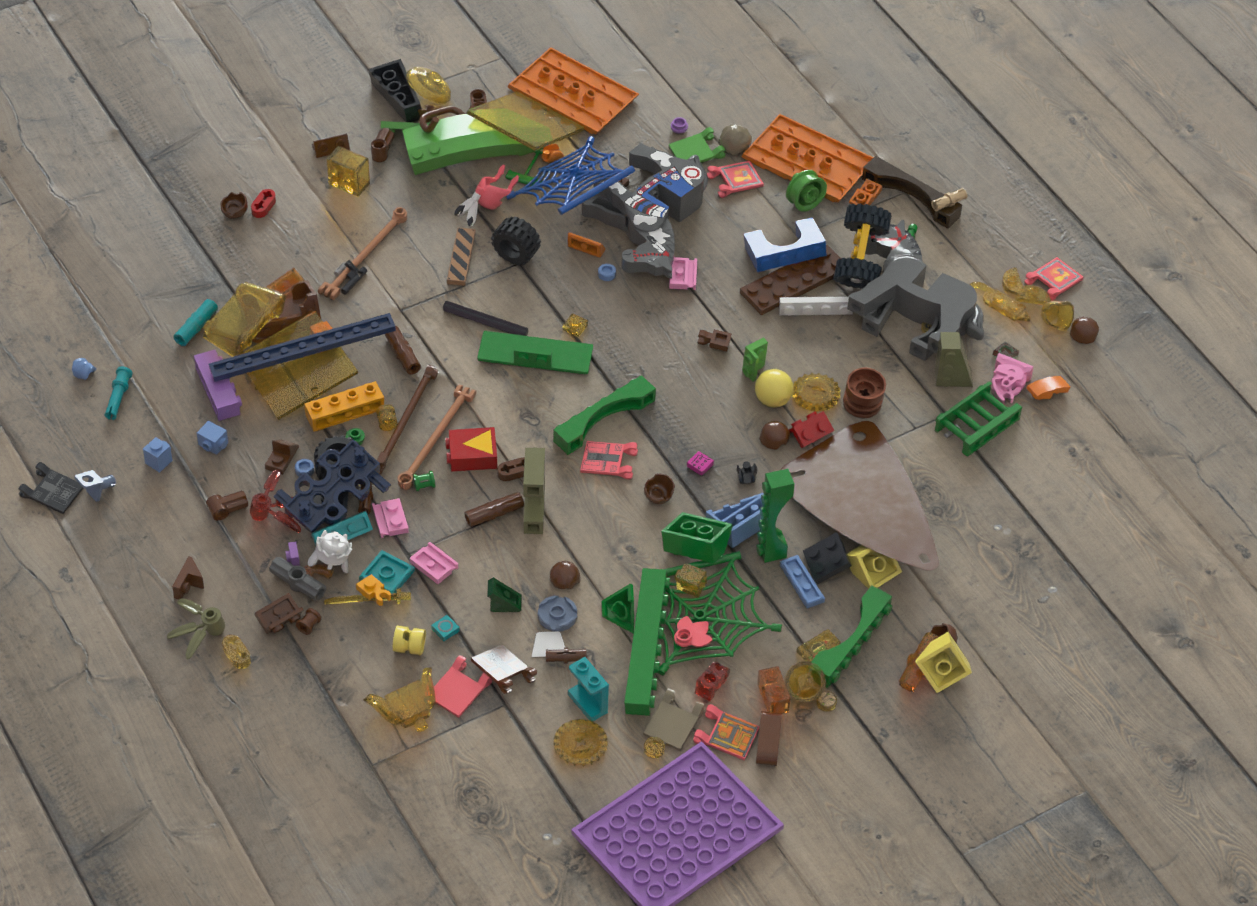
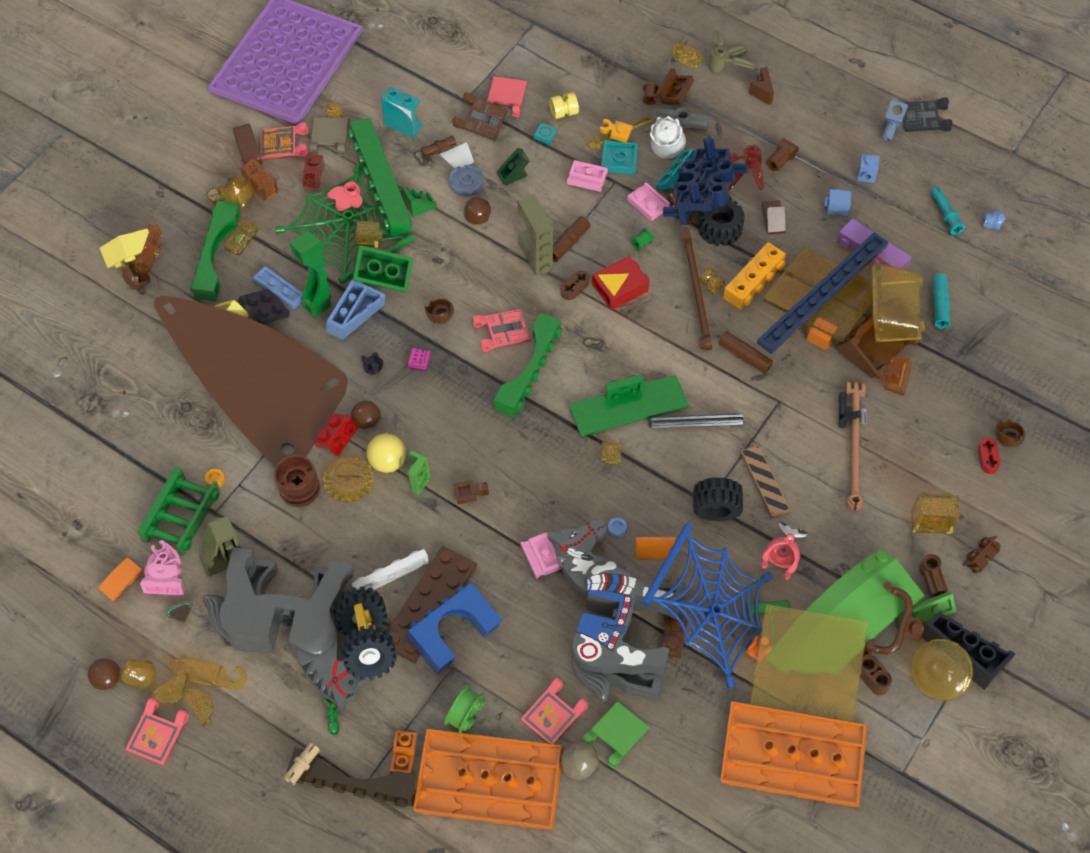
camera: 155 degrees right, 10 degrees up
(292, 555) = (697, 134): medium lavender plate -> none
(304, 466) = (750, 214): medium blue tile -> none
(357, 434) = (727, 261): green plate -> none
(405, 479) = (664, 334): nougat hinge -> none
(408, 704) = (535, 59): clear yellow torso -> none
(575, 731) = (382, 84): clear yellow gear -> none
(679, 125) = (651, 757): medium lavender plate -> none
(935, 438) = (215, 475): none -> light orange tile

